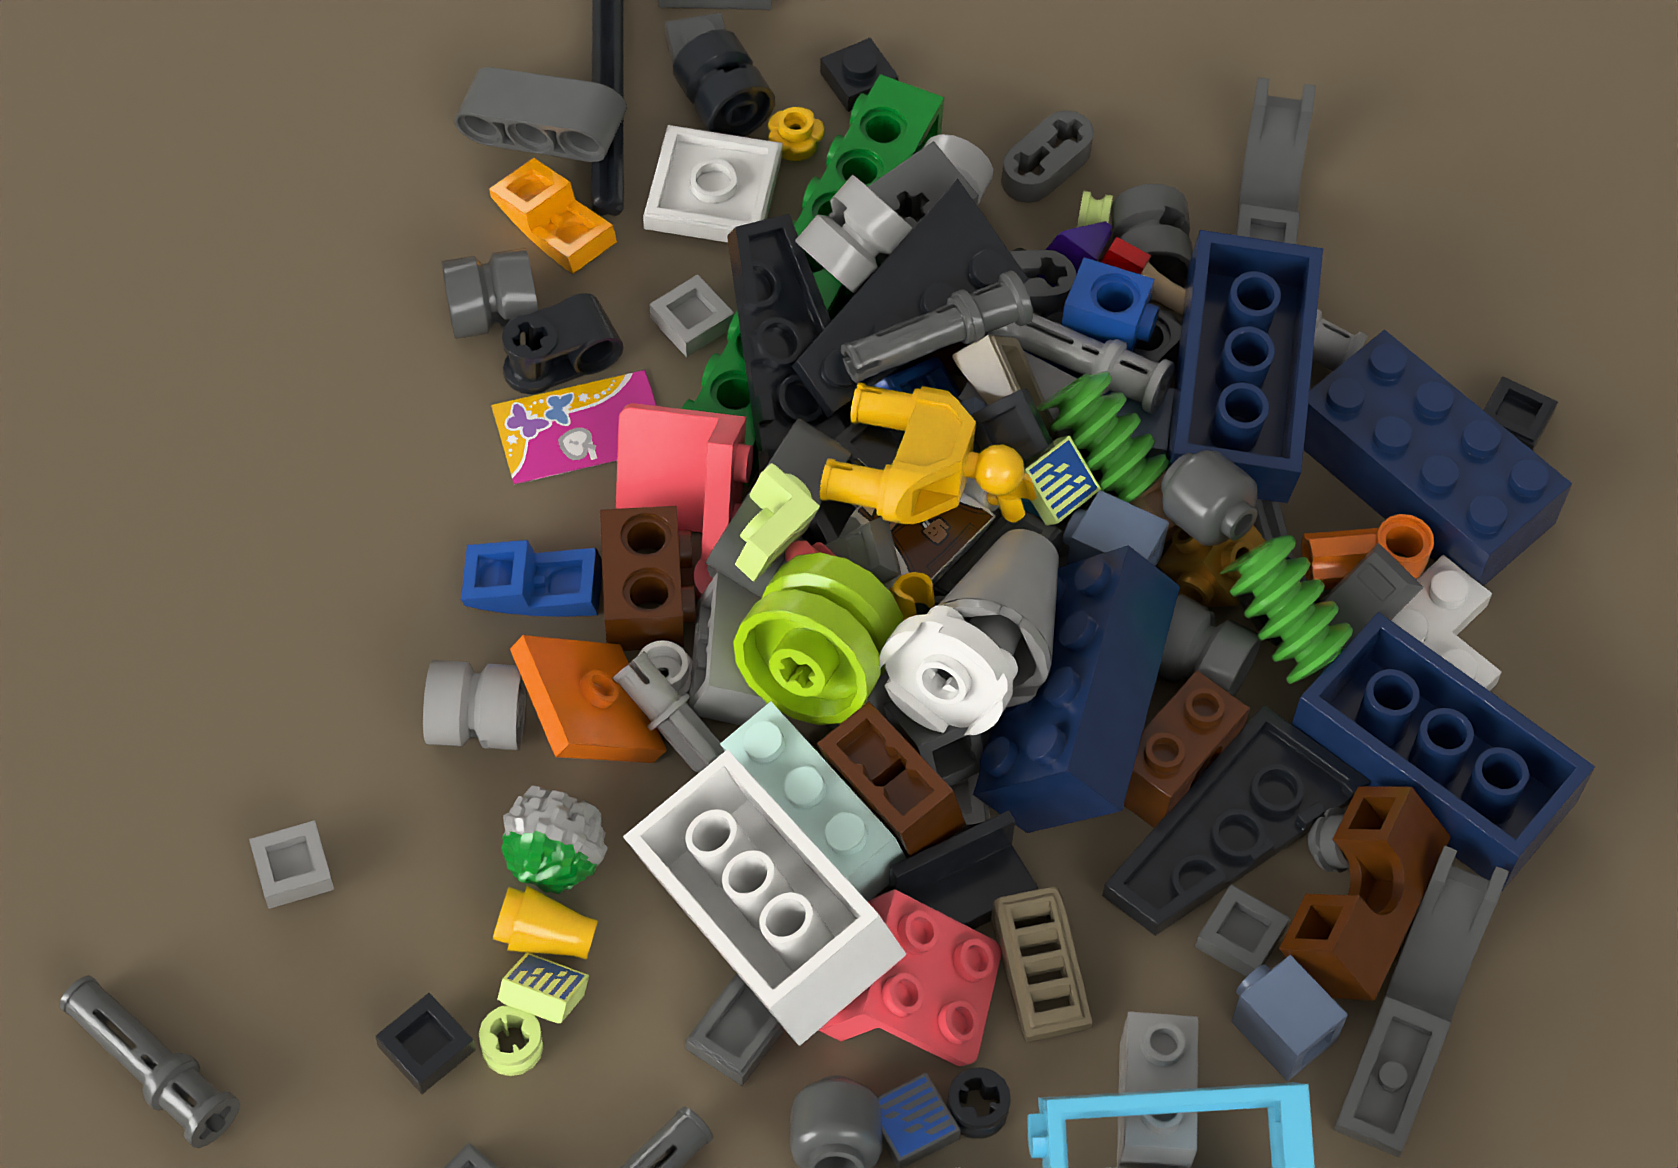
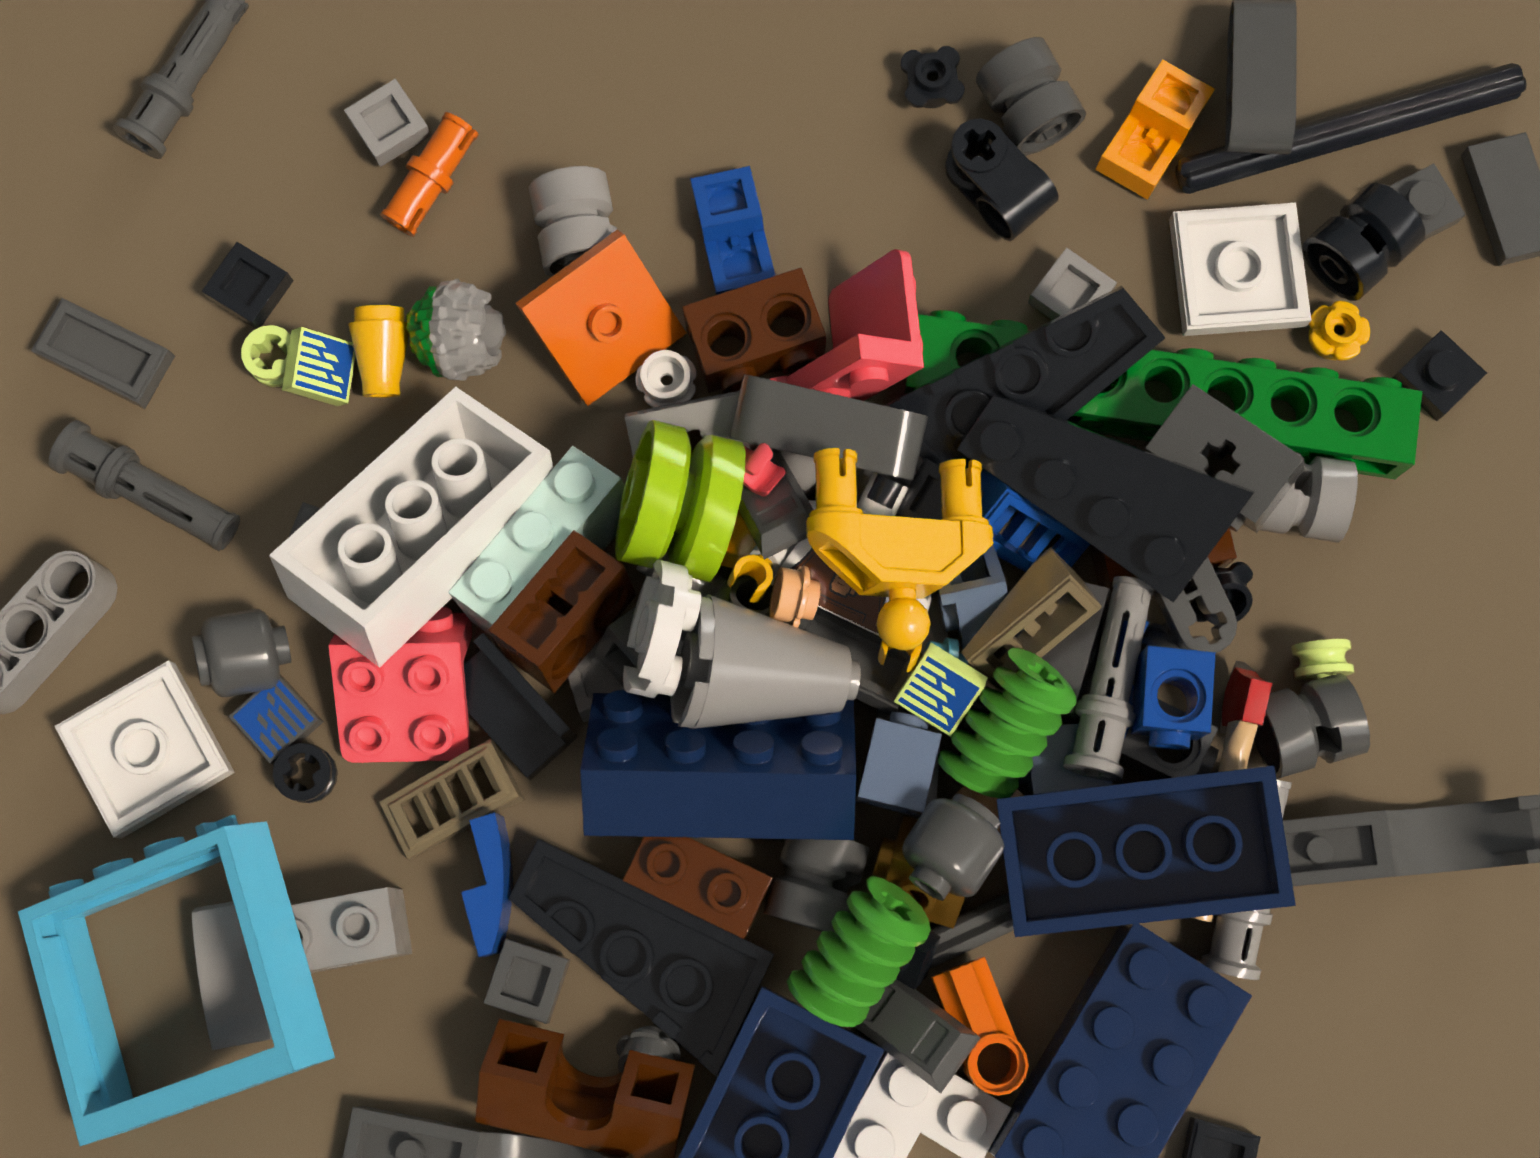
camera: 80 degrees right, 20 degrees up
(365, 837) = (429, 174): none -> orange pin
(432, 388) = (928, 93): none -> black plate
(567, 426) = (917, 211): sticker -> none
(669, 712) = (613, 394): light grey axle -> none
(784, 518) = (760, 421): yellowish green bracket -> none
(853, 234) = (1154, 408): light grey wheel -> none
(942, 561) = (794, 596): none -> light nougat plate
(963, 319) = (1084, 545): dark grey pin -> none
(1013, 423) = (966, 625): black plate -> none
(1054, 163) = (1402, 581): dark grey beam -> none
(1081, 243) = (1260, 651): dark purple slope -> none
(1161, 943) = (489, 904): none -> blue slope
(1287, 1016) = (445, 1040): sand blue brick -> none

